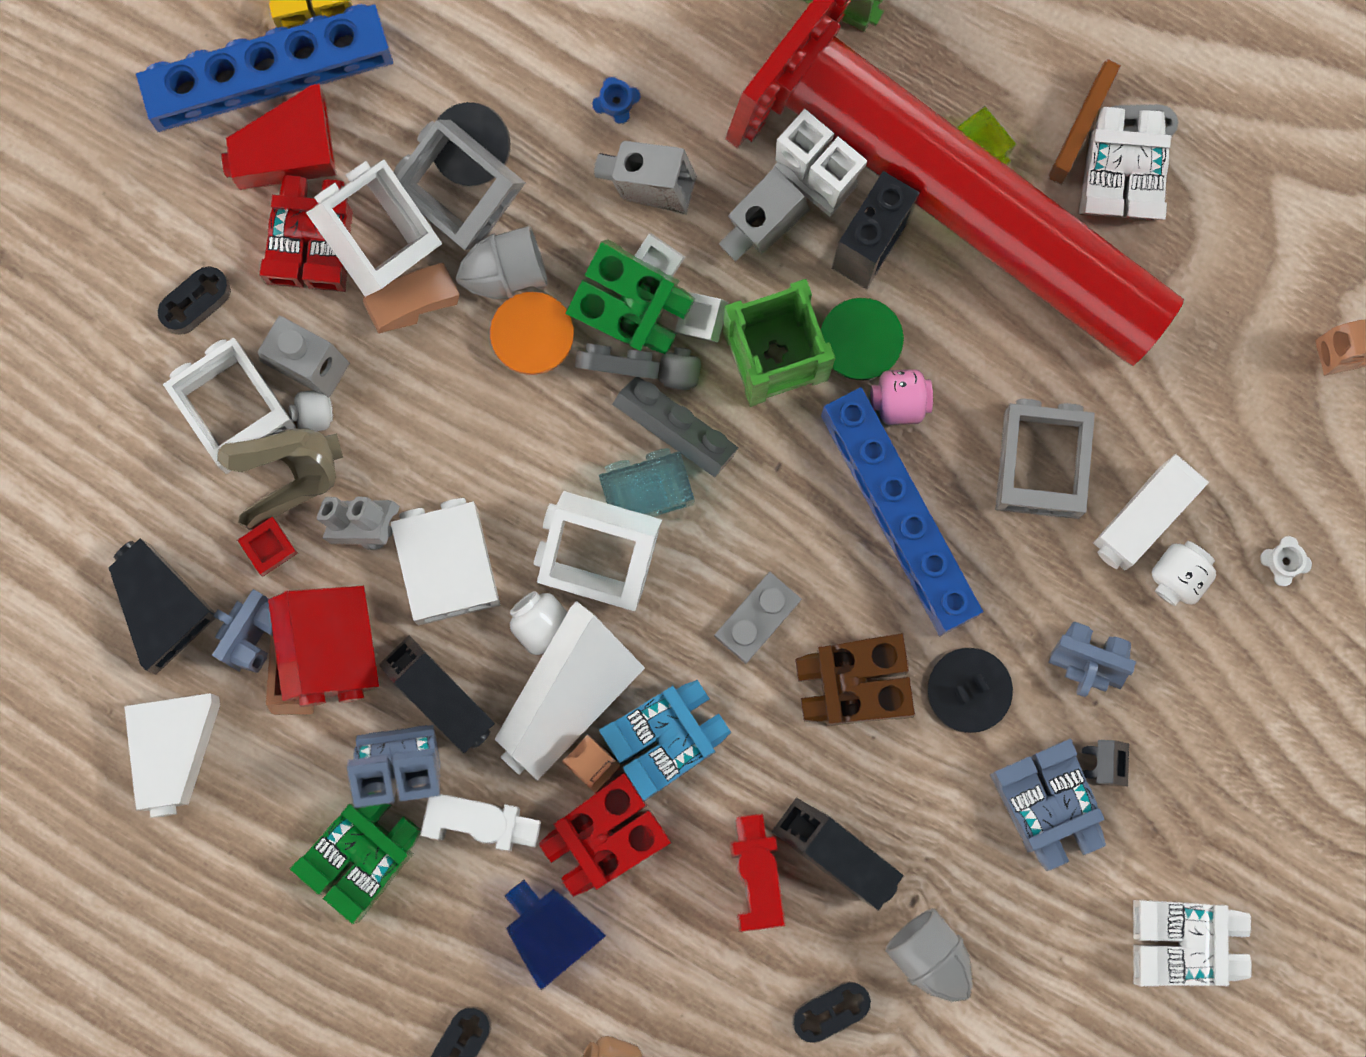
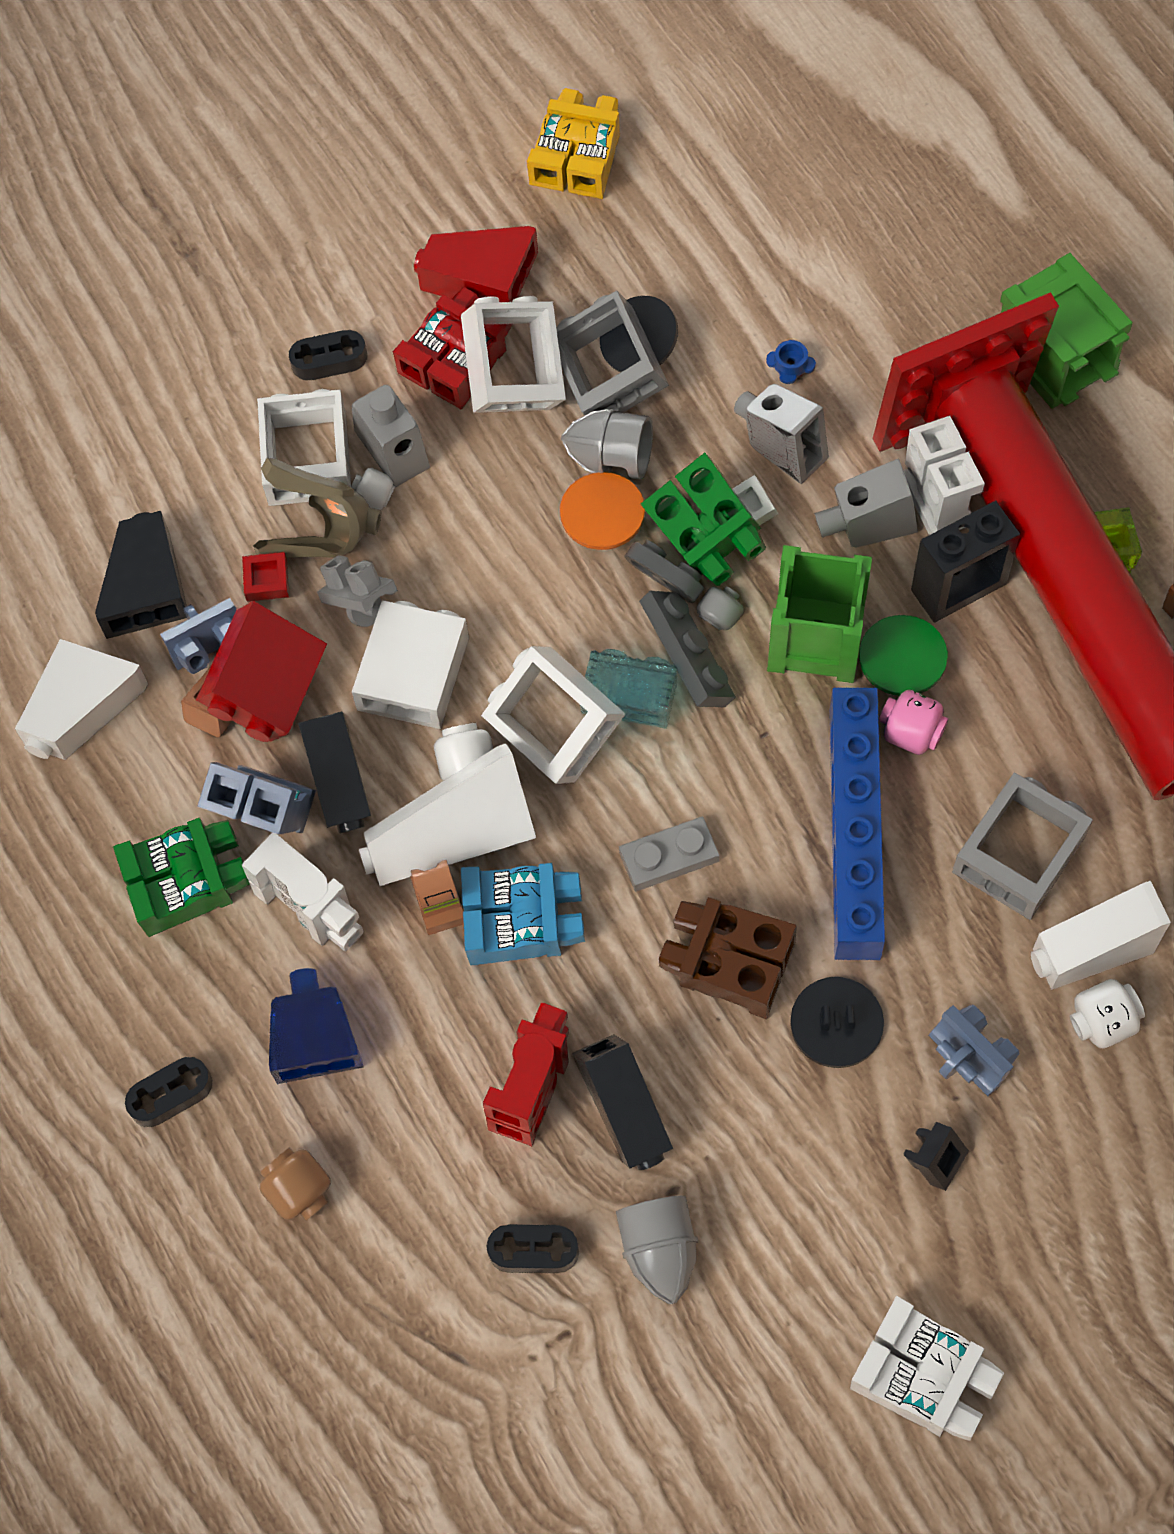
camera: 35 degrees right, 15 degrees down
(250, 86) = (496, 199): blue brick -> none
(410, 295) = (502, 431): nougat slope -> none
(595, 845) = (414, 971): red hips -> none
(704, 318) = (761, 572): white plate -> none
(1051, 813) = (861, 1178): sand blue hips -> none

